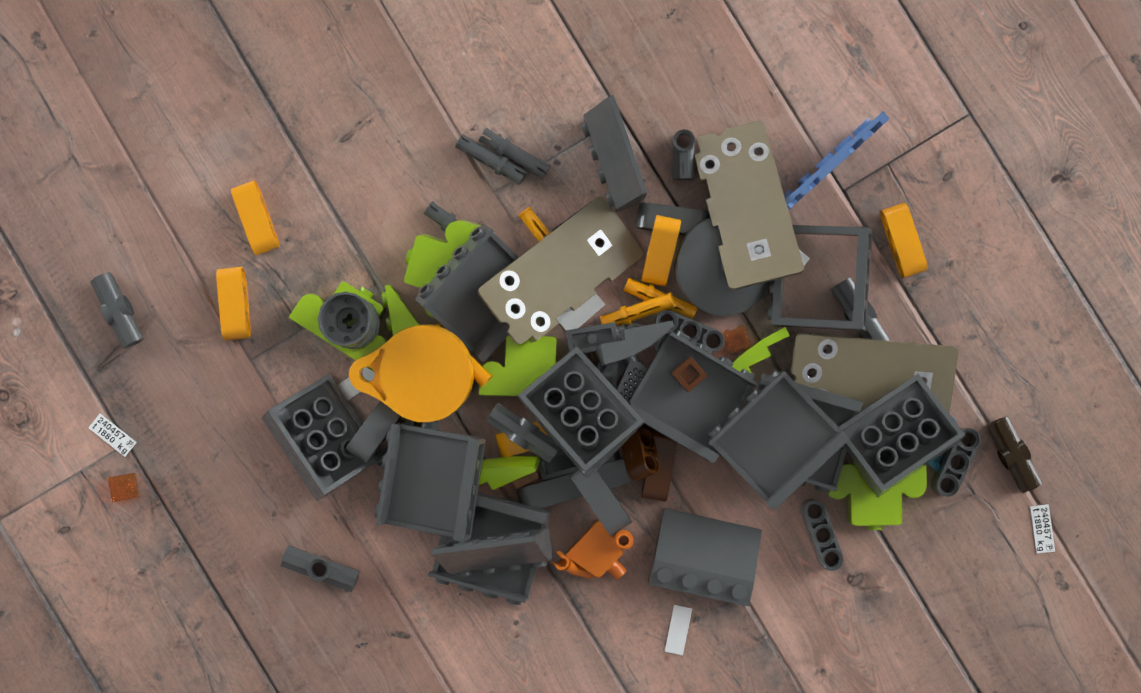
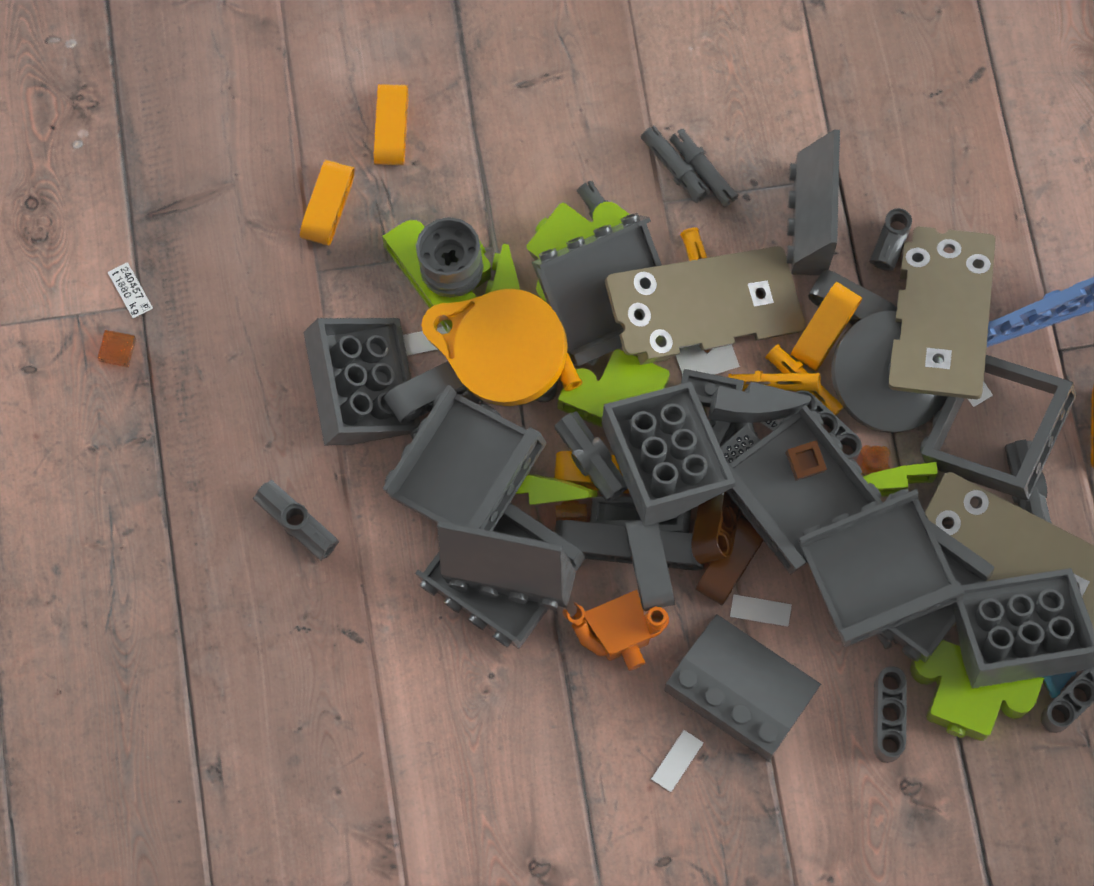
camera: 20 degrees right, 15 degrees down
(117, 310) = (198, 160): dark grey piece -> none
(695, 490) = (760, 610): none -> white sticker

